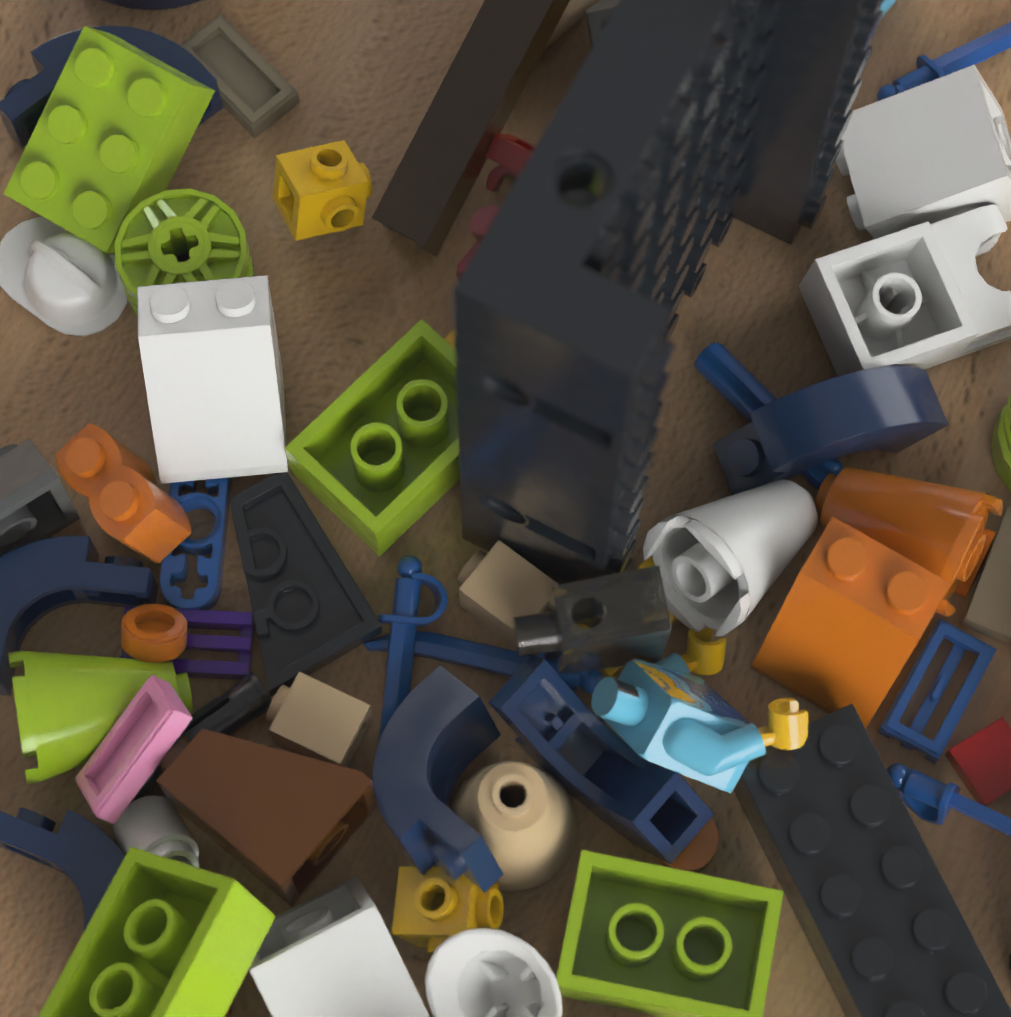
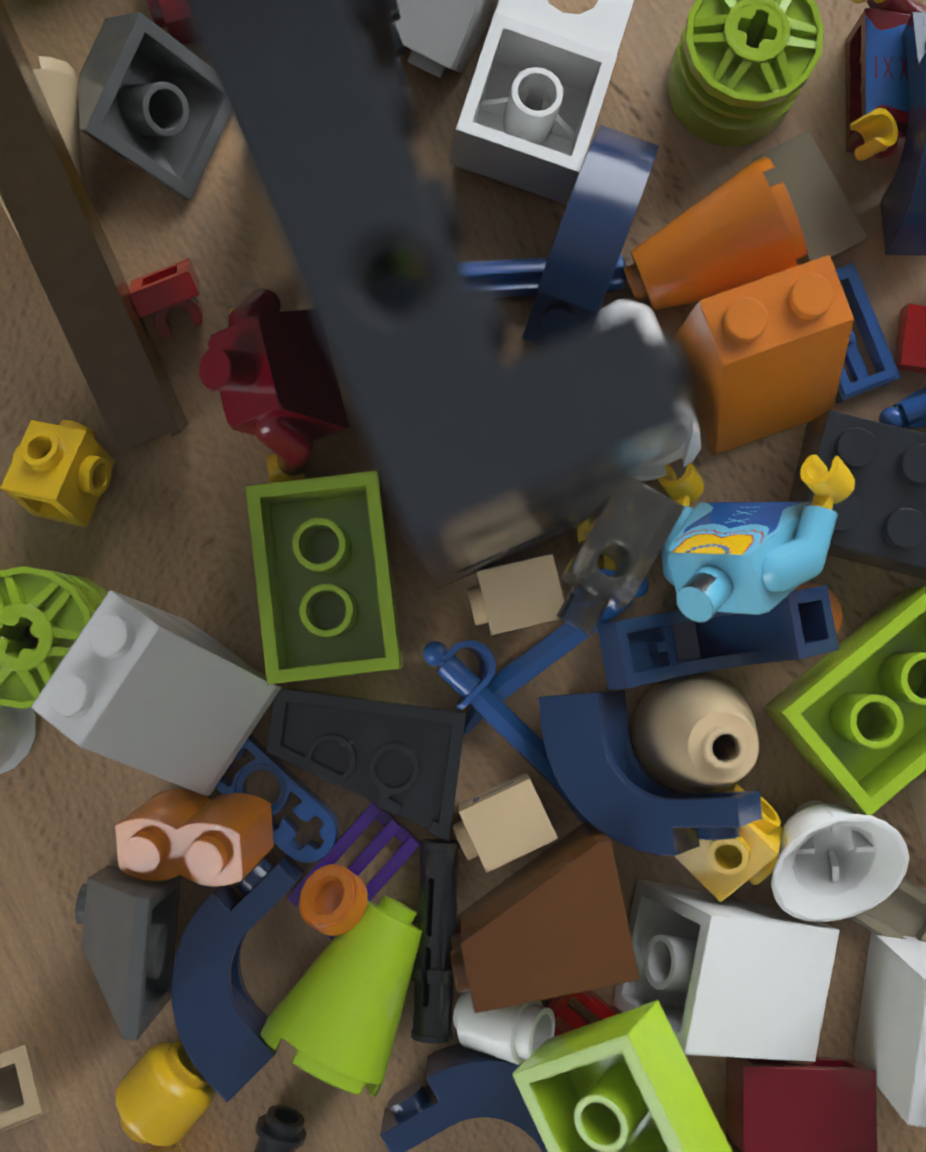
camera: 50 degrees left, 15 degrees up
(133, 749) = (425, 1000): bright pink tile -> none

